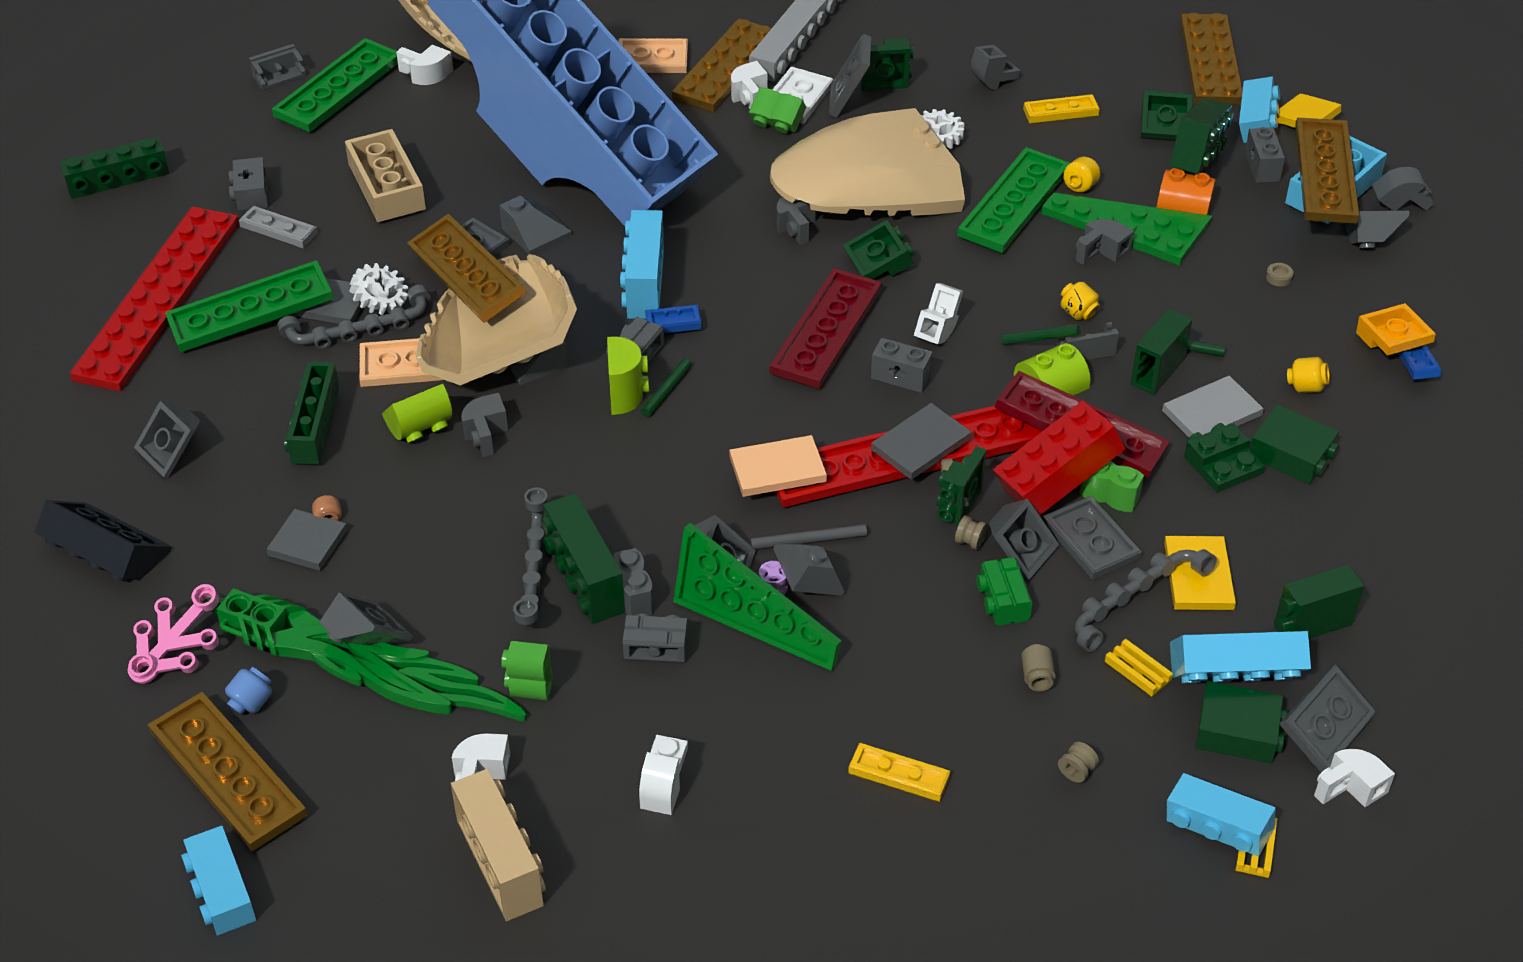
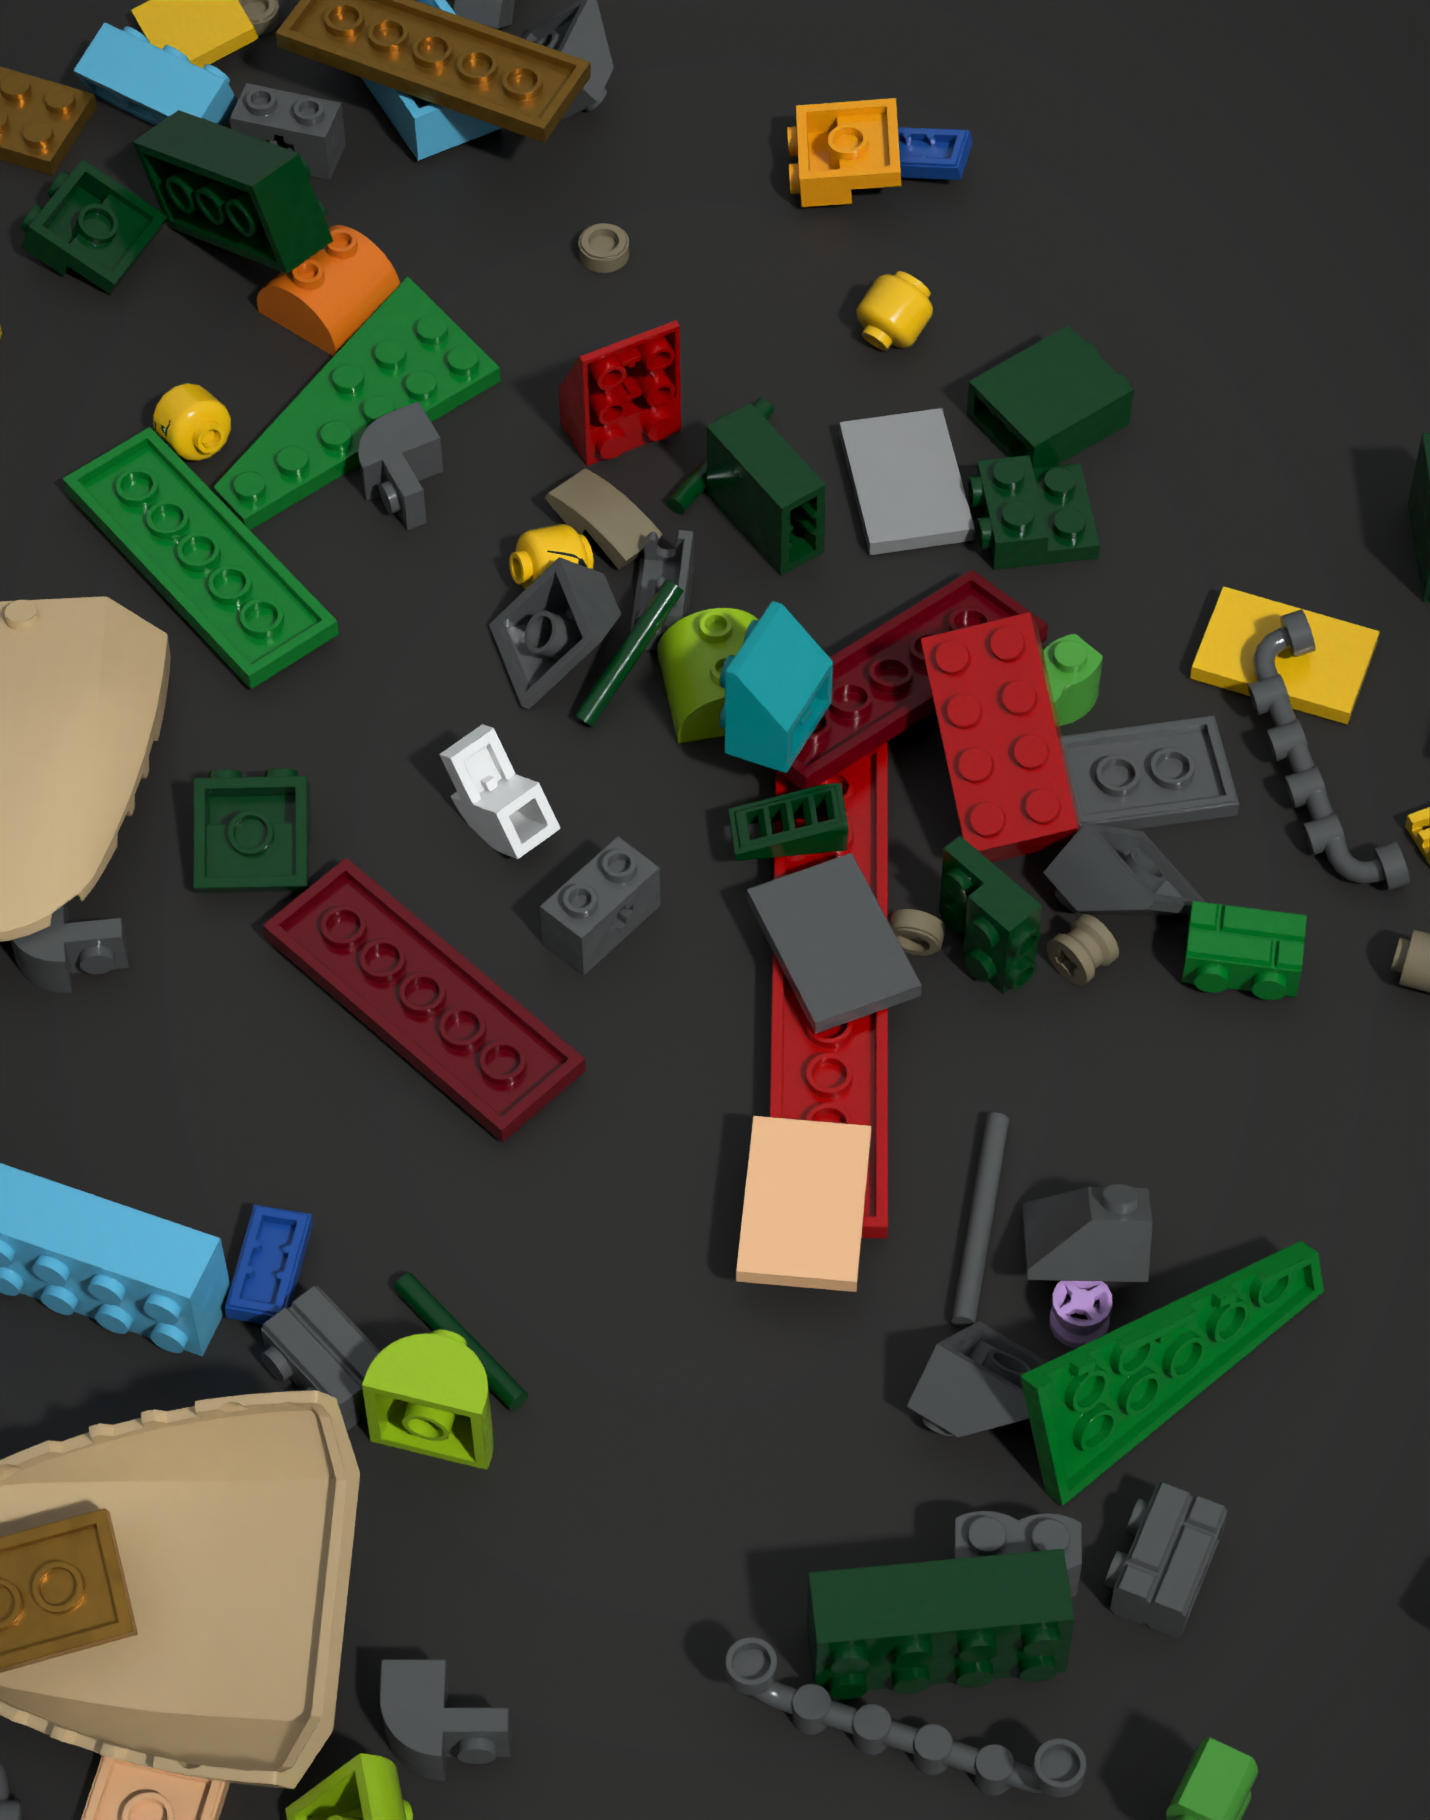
camera: 70 degrees left, 10 degrees up
(979, 423) = (804, 804): none -> dark green slope
(1029, 365) = (774, 690): none -> teal slope
(1045, 312) = (553, 627): none -> dark grey slope
(1118, 310) = (605, 513): none -> dark tan slope
(1182, 286) = (623, 395): none -> red slope

